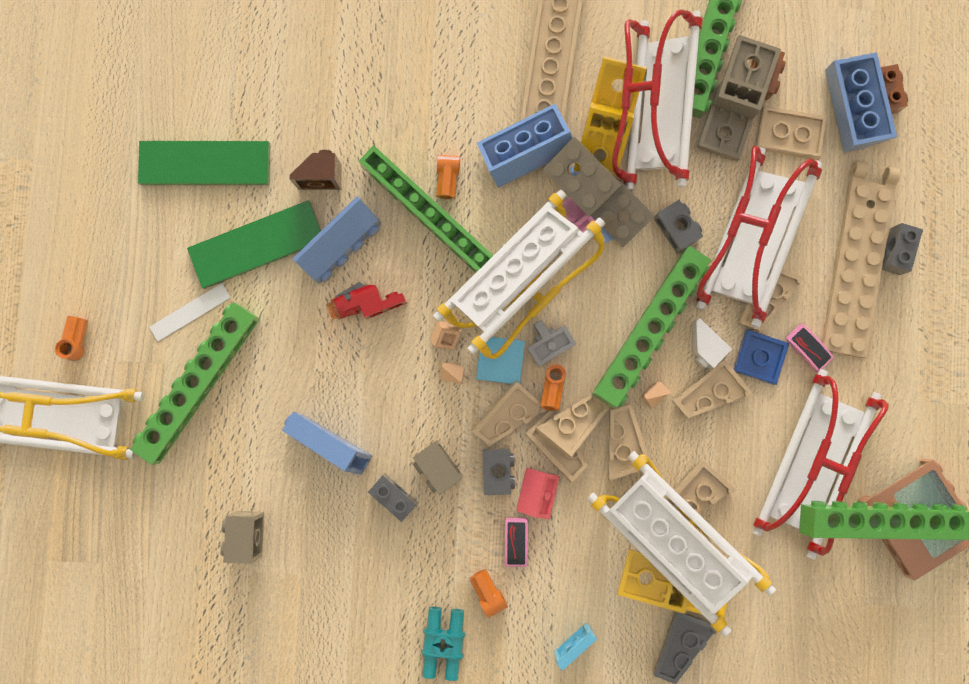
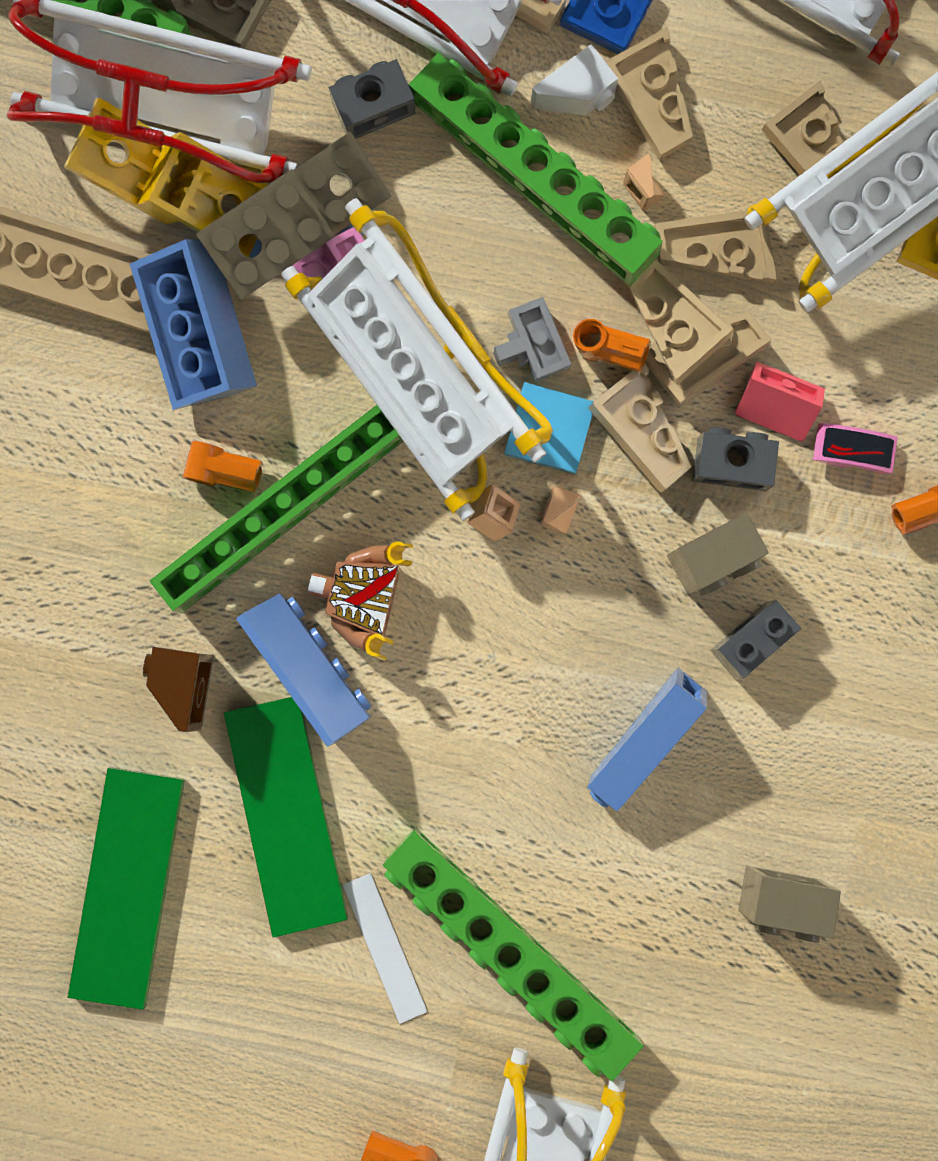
camera: 85 degrees left, 0 degrees up
(363, 299) = (413, 635): red plate -> none
(385, 267) = (362, 595): none -> torso

